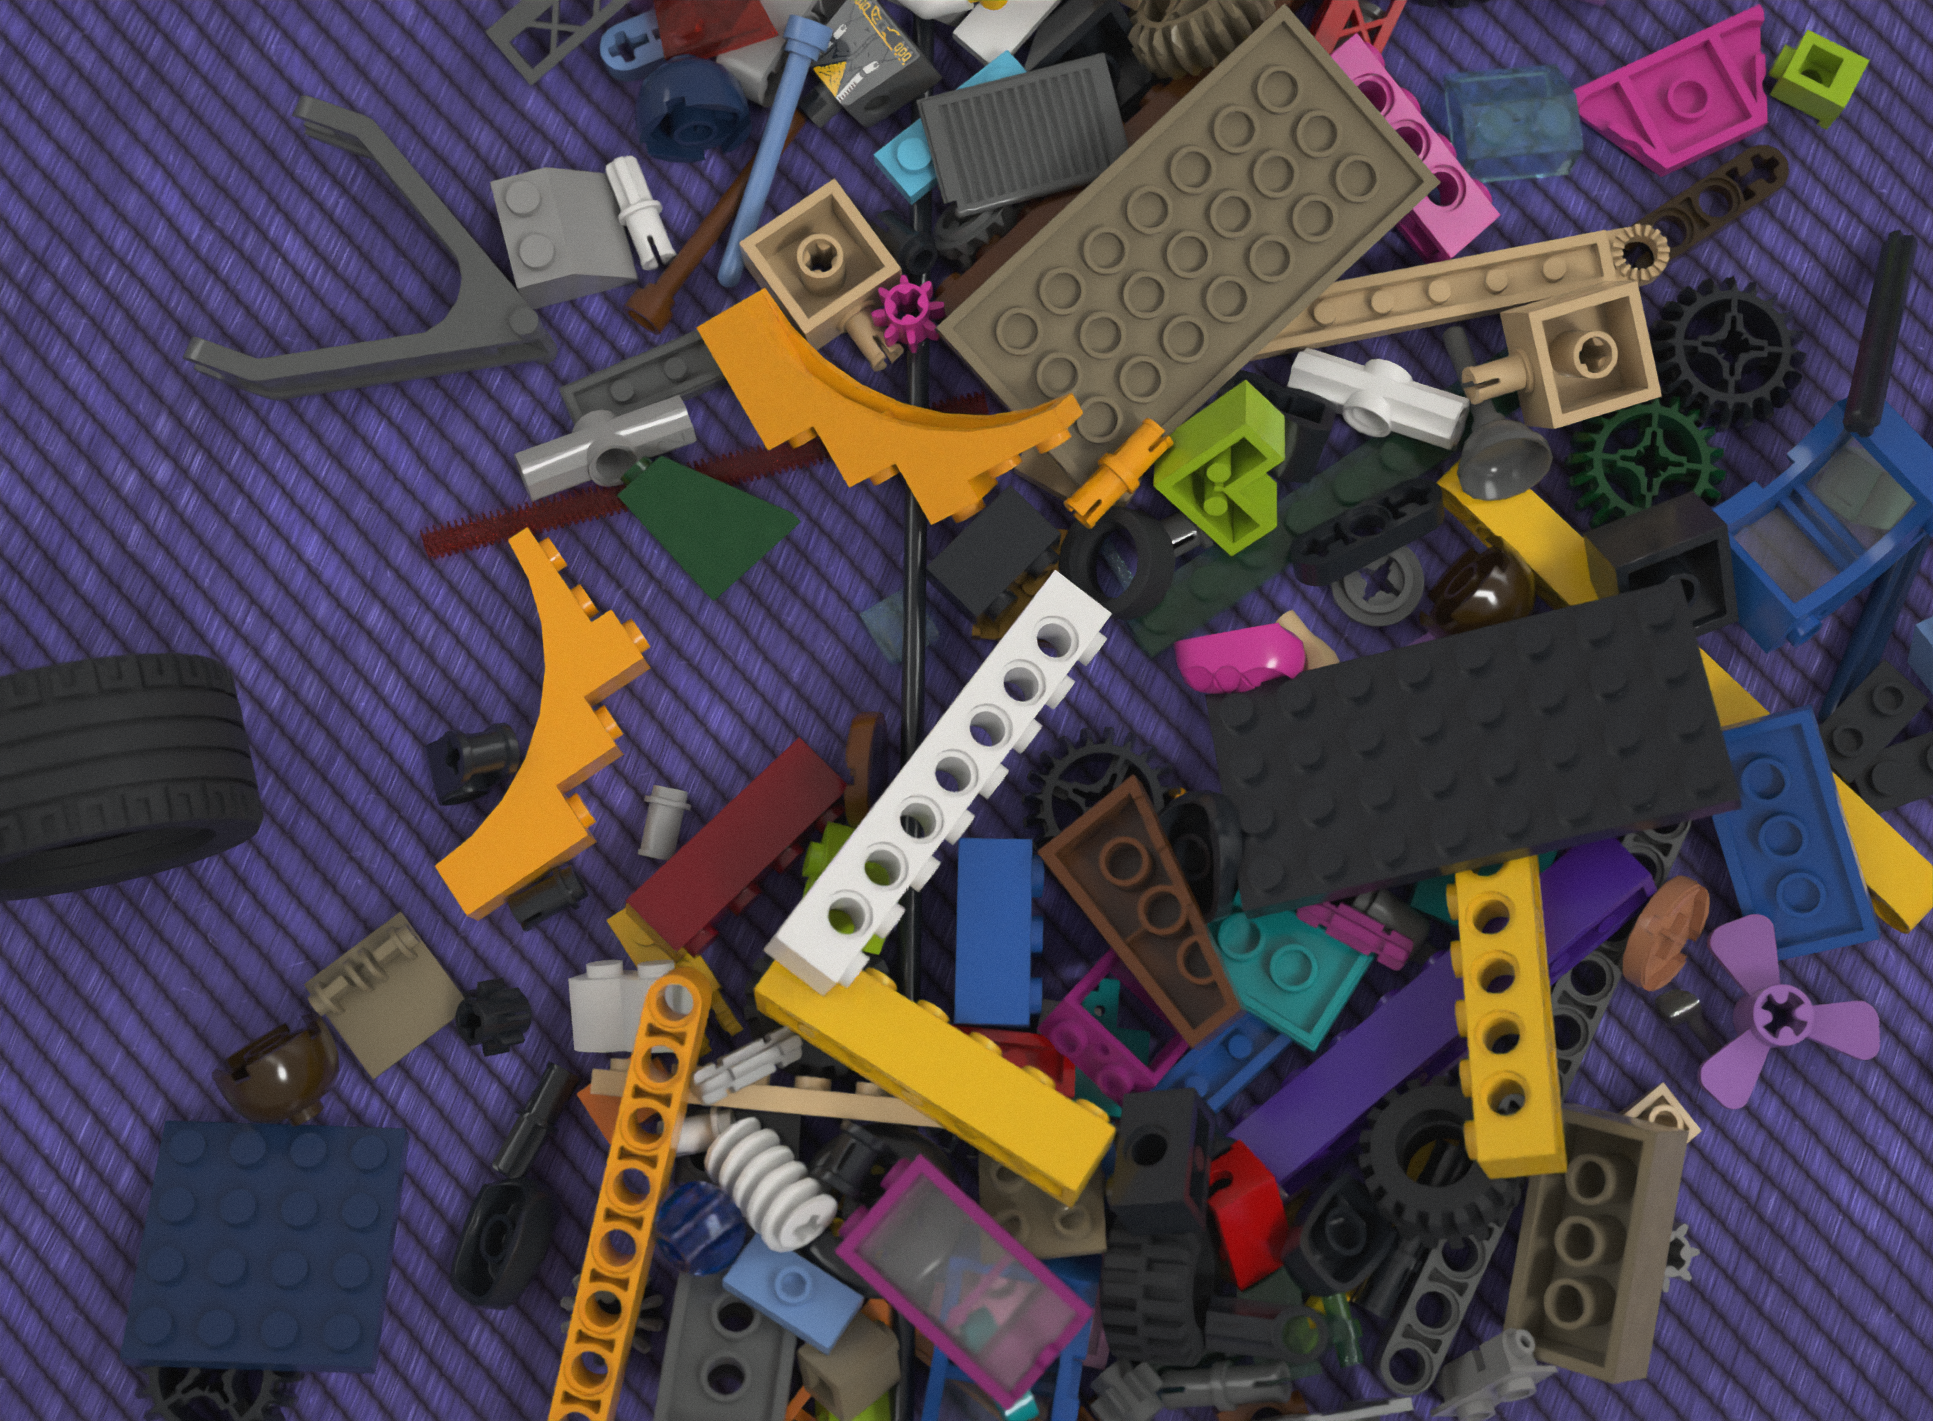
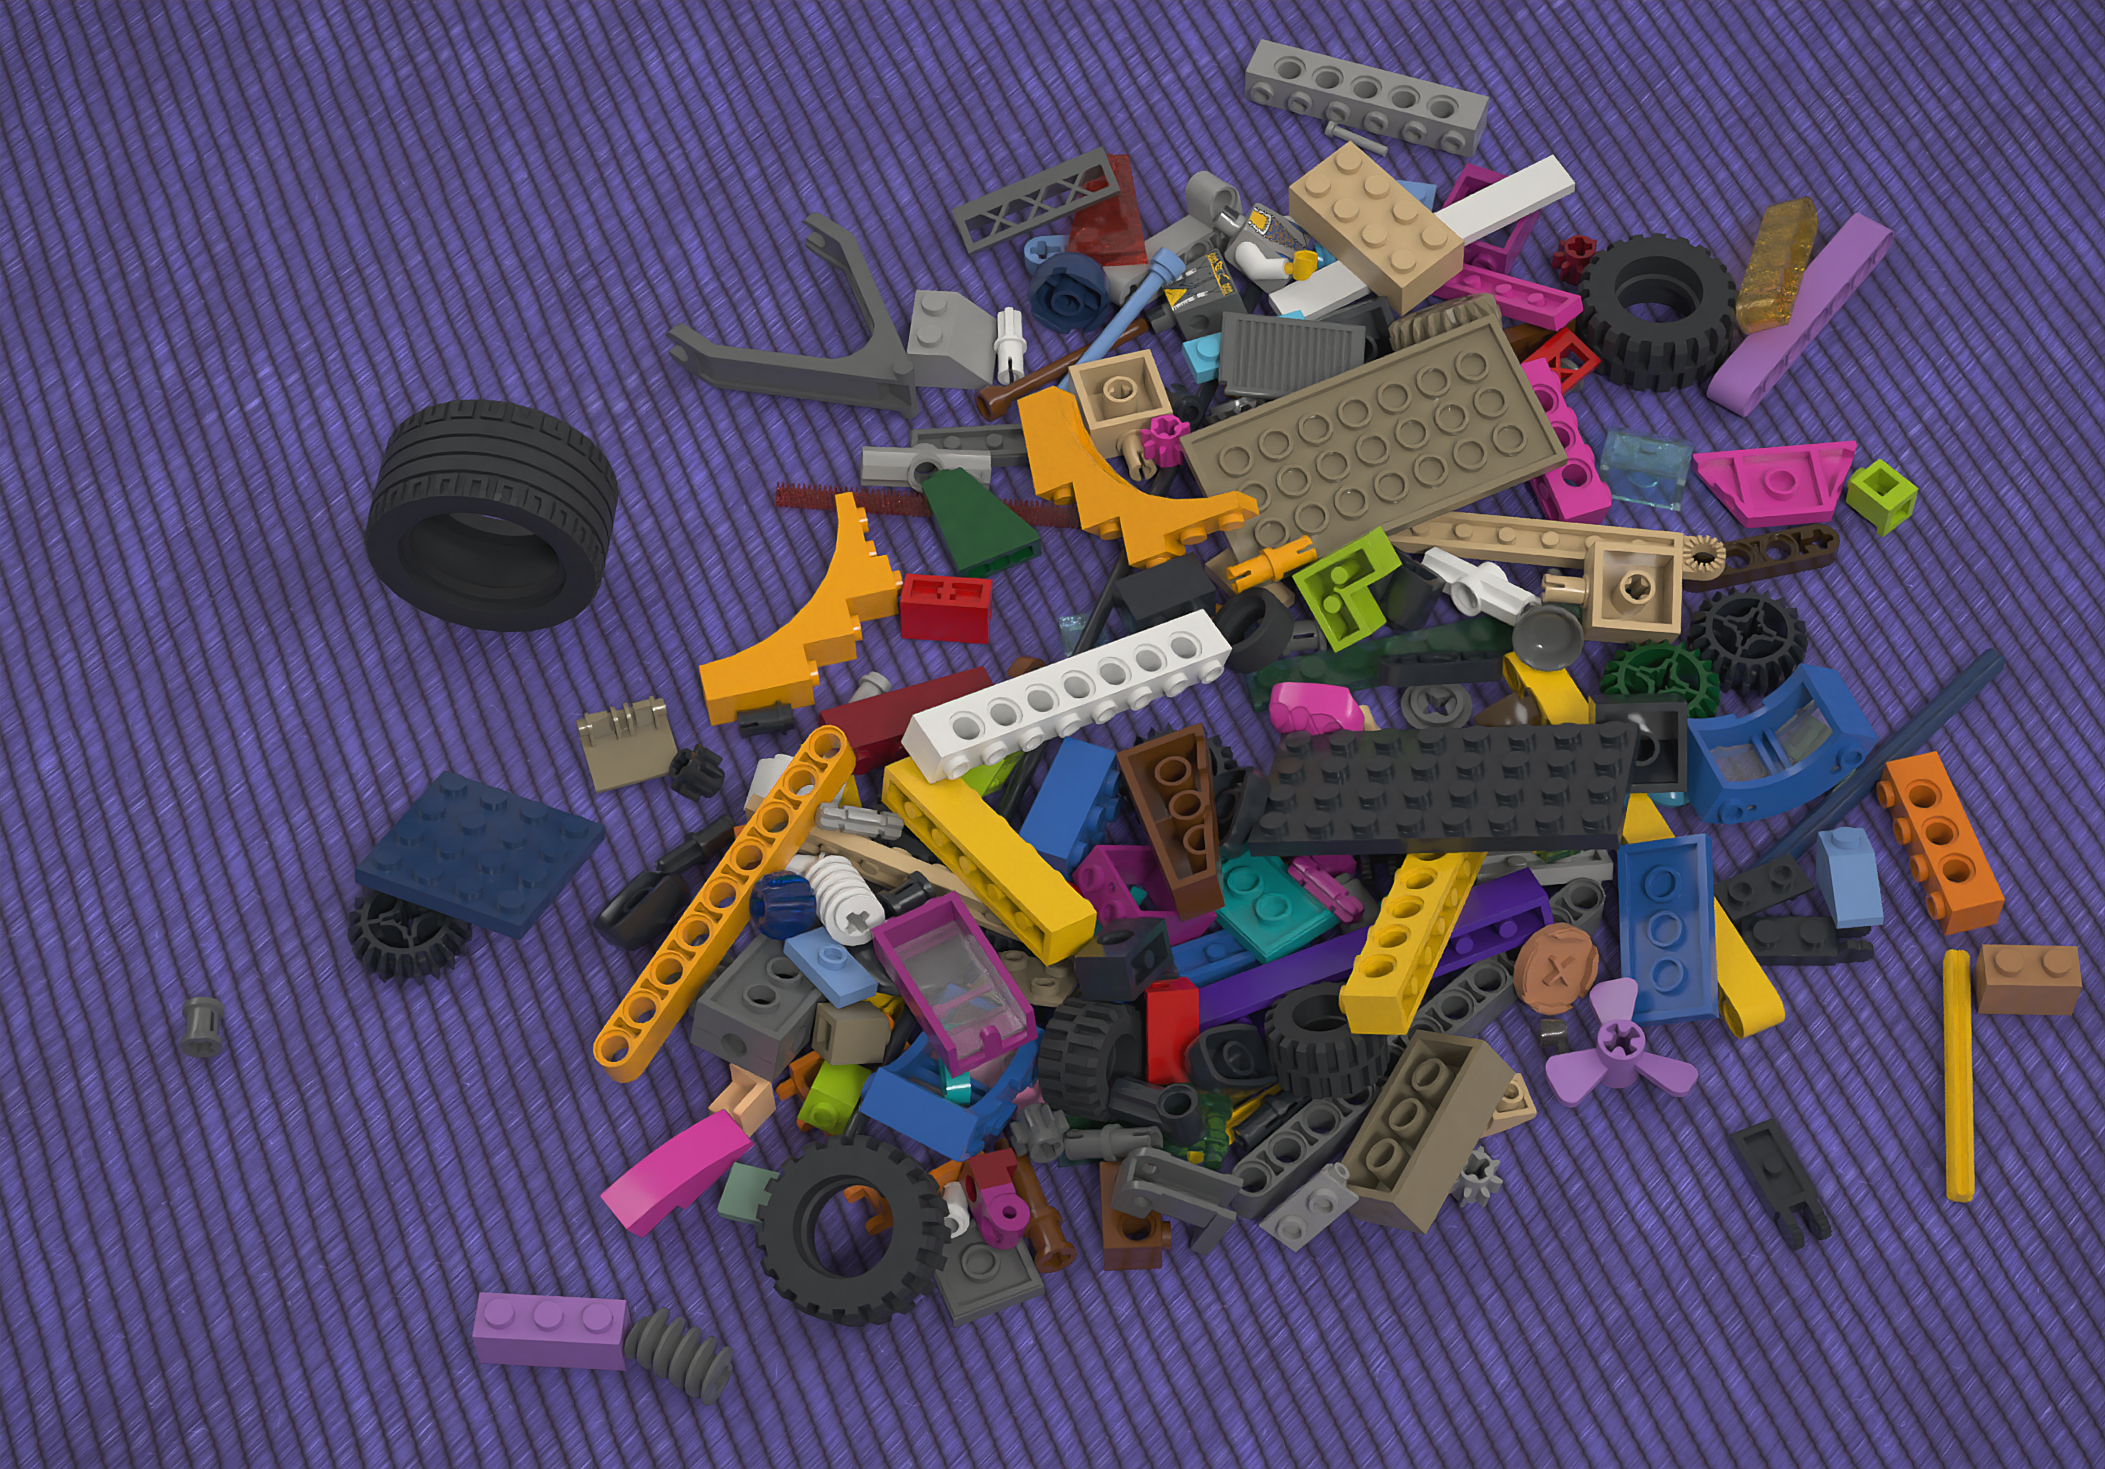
camera: 20 degrees right, 25 degrees down
(282, 1074) = (538, 759): dark brown cylinder -> none
(471, 764) = (749, 617): black piece -> none
(713, 652) = (946, 608): none -> red hinge
(1880, 334) = (1858, 643): black axle -> none

